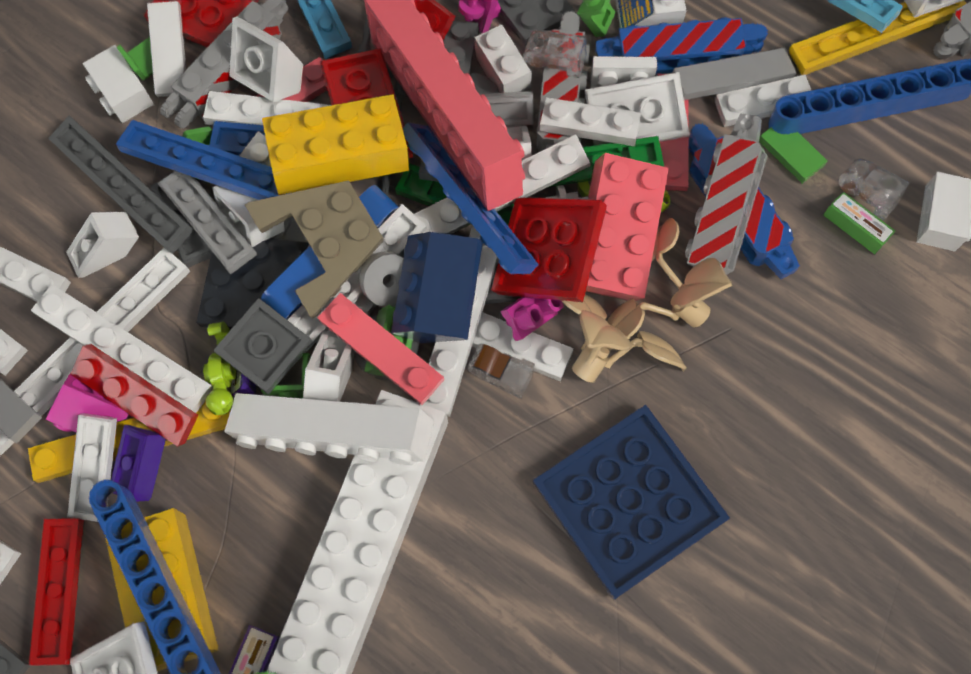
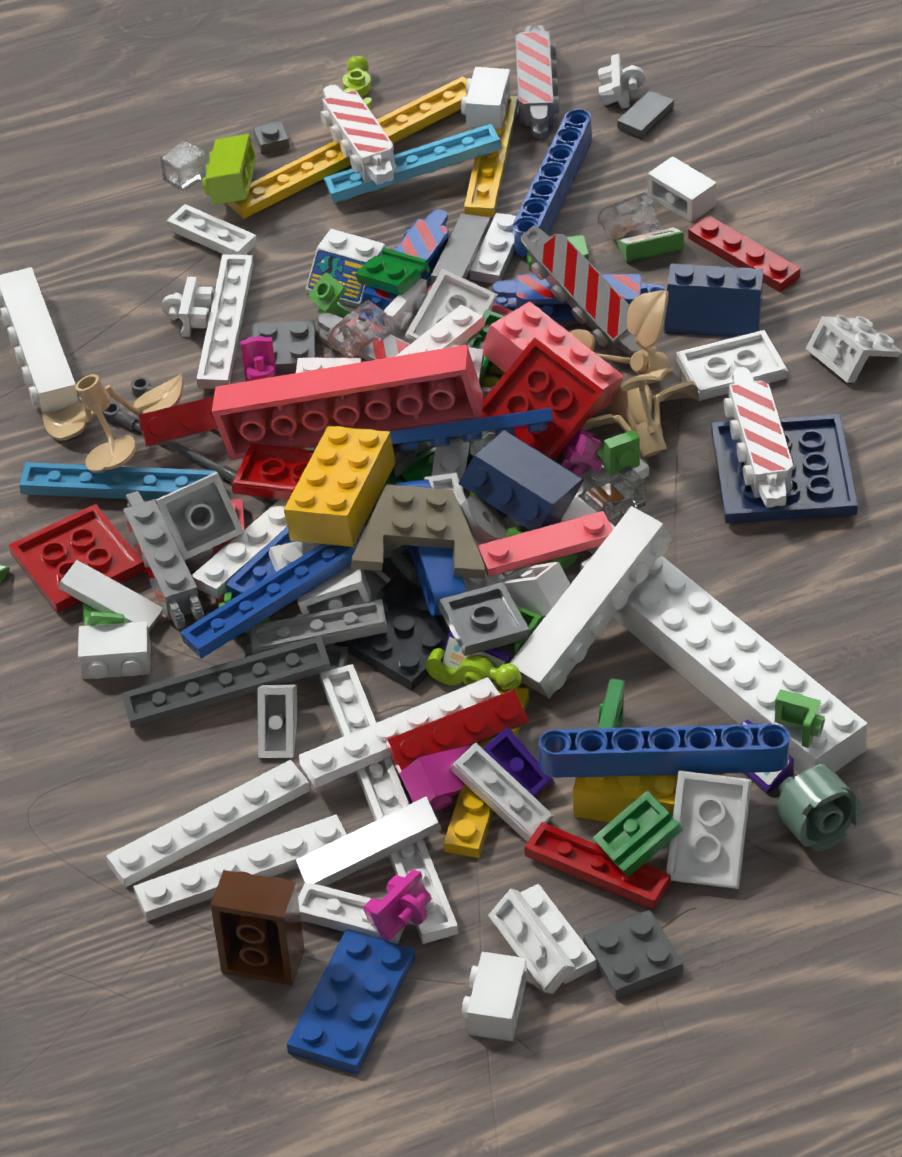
camera: 60 degrees left, 25 degrees down
(79, 615) = (637, 833): none -> green plate
(216, 516) = (612, 709): none -> green plate
(539, 348) = (620, 452): none -> bright green bracket
(635, 465) = (759, 438): none -> white hinge
(649, 35) = (392, 271): none -> green plate
(744, 380) = (713, 363): none -> white tile
(811, 321) = (713, 300): none -> dark blue slope
(838, 478) = (846, 344): none -> white bracket
(903, 312) = (743, 252): none -> plate

